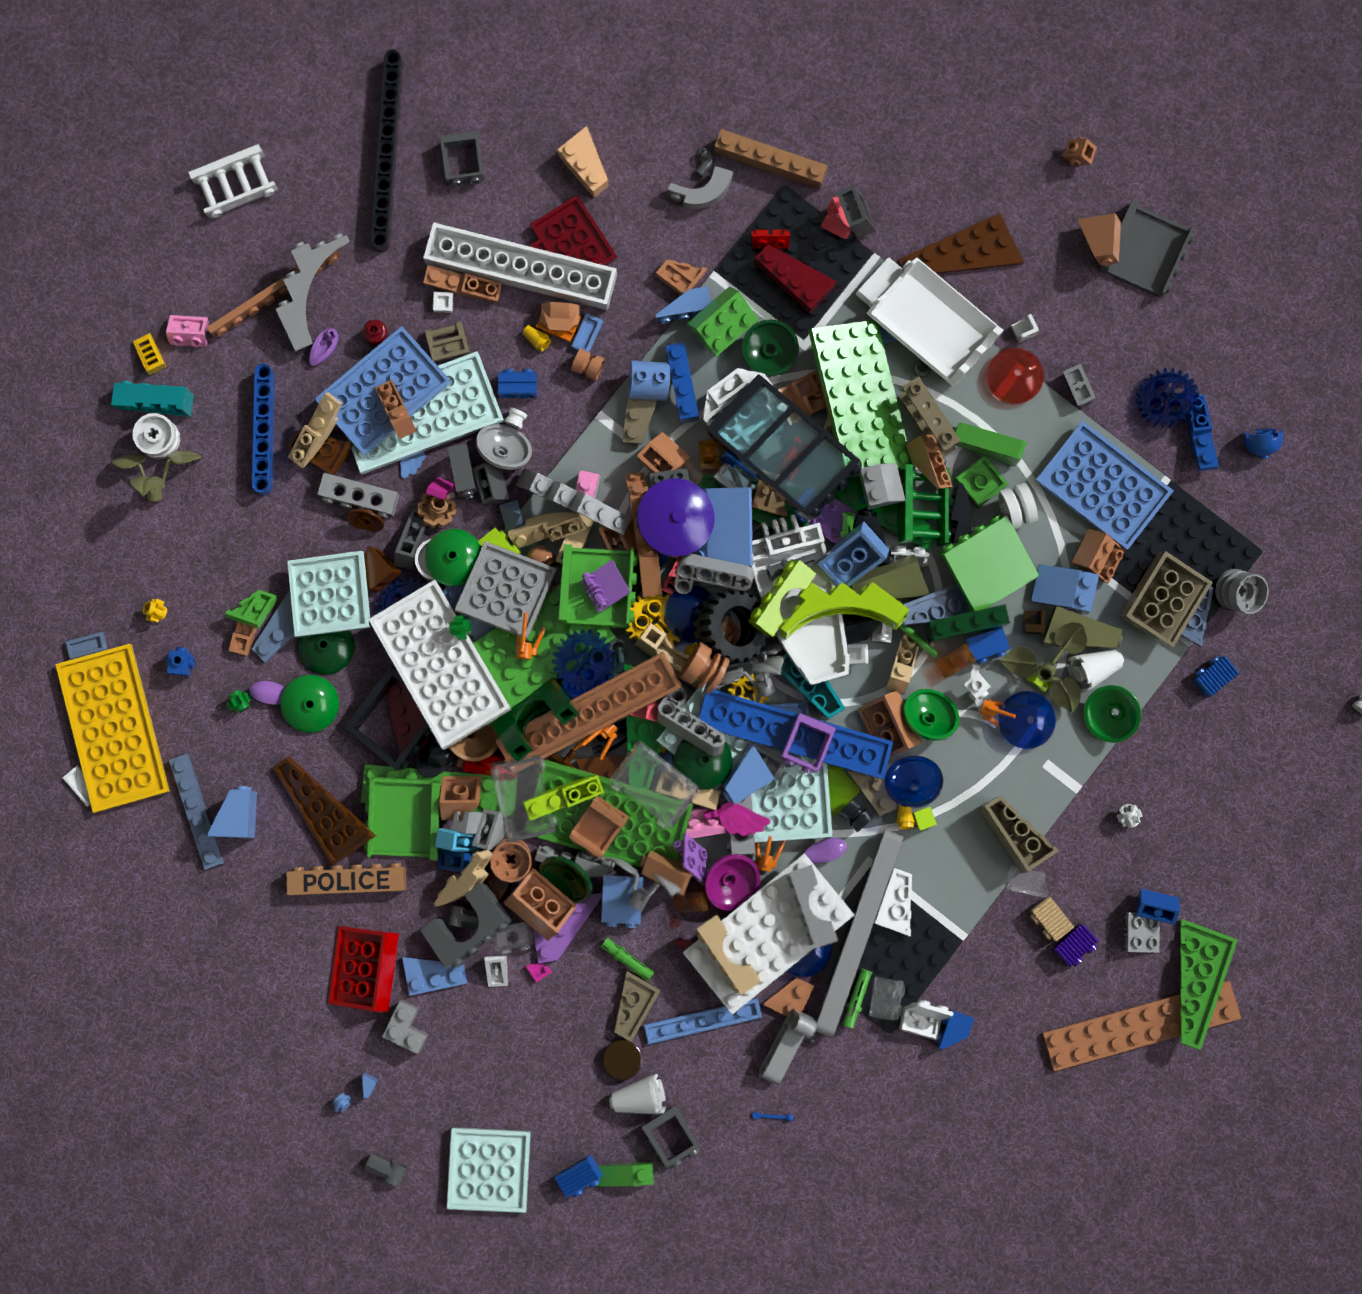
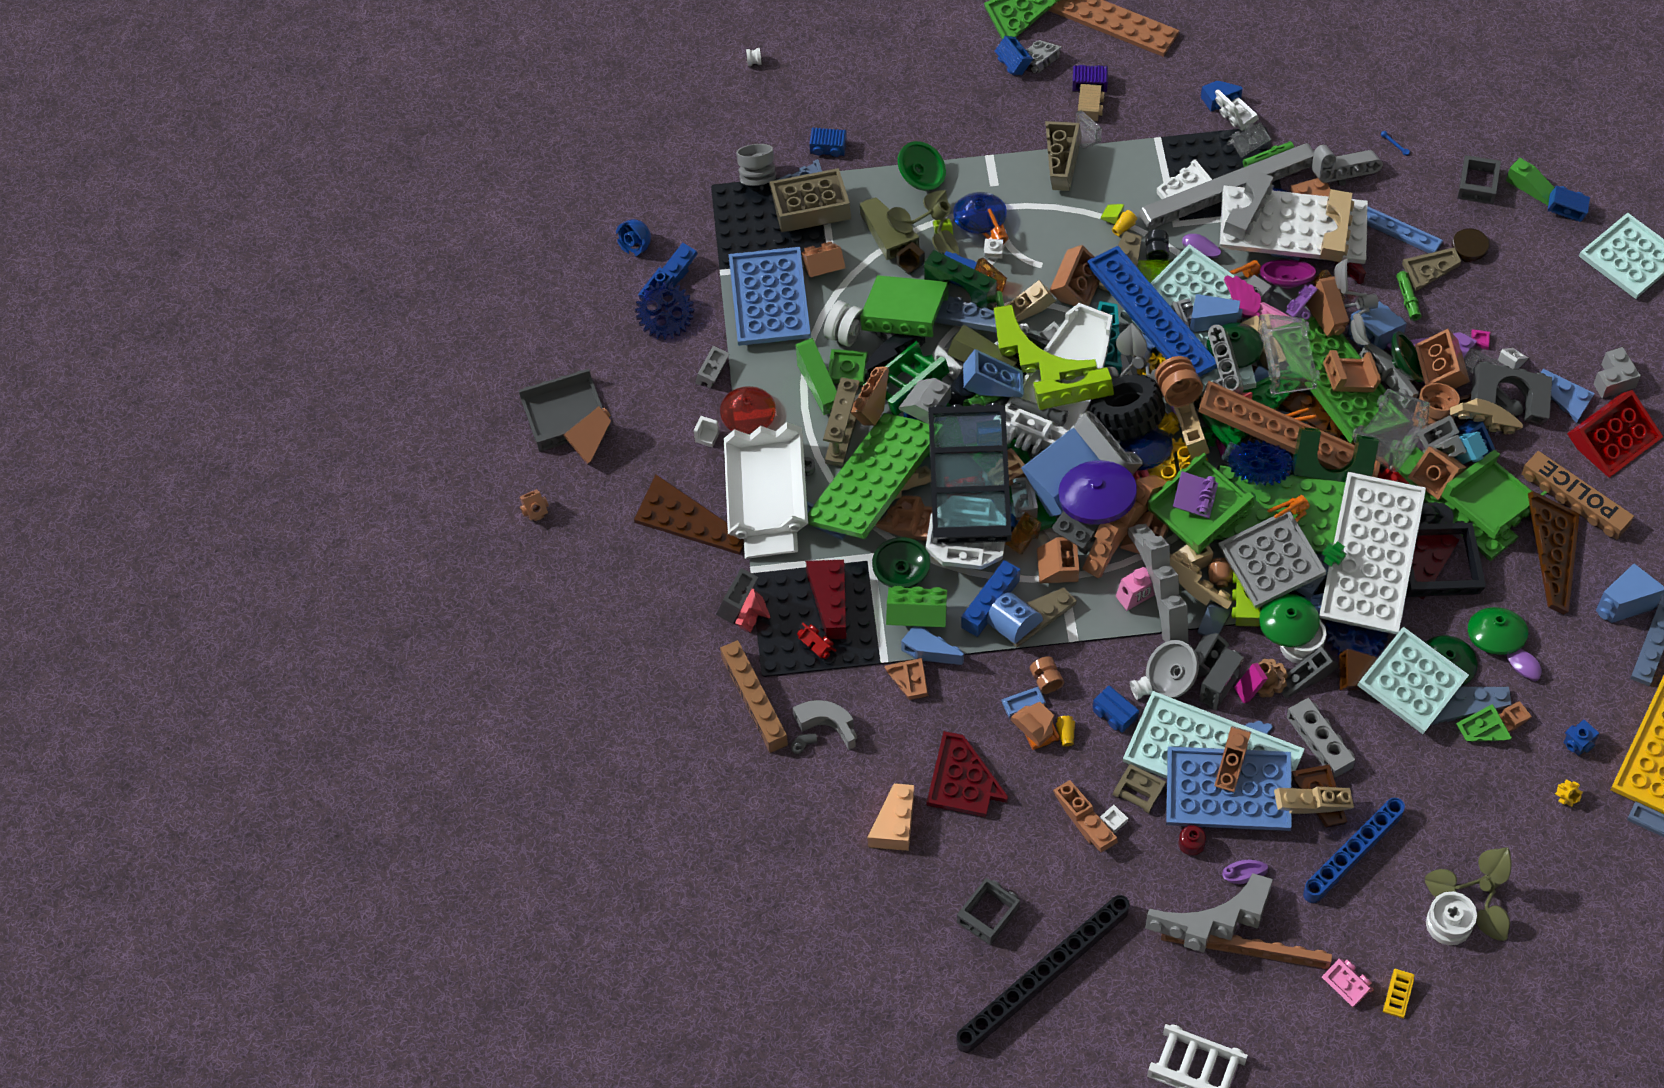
camera: 130 degrees left, 25 degrees down
(152, 398) = (1427, 949): teal wedge -> none
(238, 701) = (1555, 674): green gear -> none
(365, 519) = (1330, 714): reddish brown dish -> none
(520, 266) = (1027, 788): white brick -> none
(563, 796) = (1355, 404): lime slope -> none
(640, 1097) = (1481, 212): white cone -> none
(815, 725) = (1144, 283): medium lavender window -> none
(911, 773) = (1094, 219): clear blue dish -> none
(932, 707) = (1038, 252): green dish -> none
(1065, 588) = (866, 257): medium blue slope -> none
(1094, 668) = (904, 196): white cone -> none
(1129, 815) = (977, 109): white gear -> none

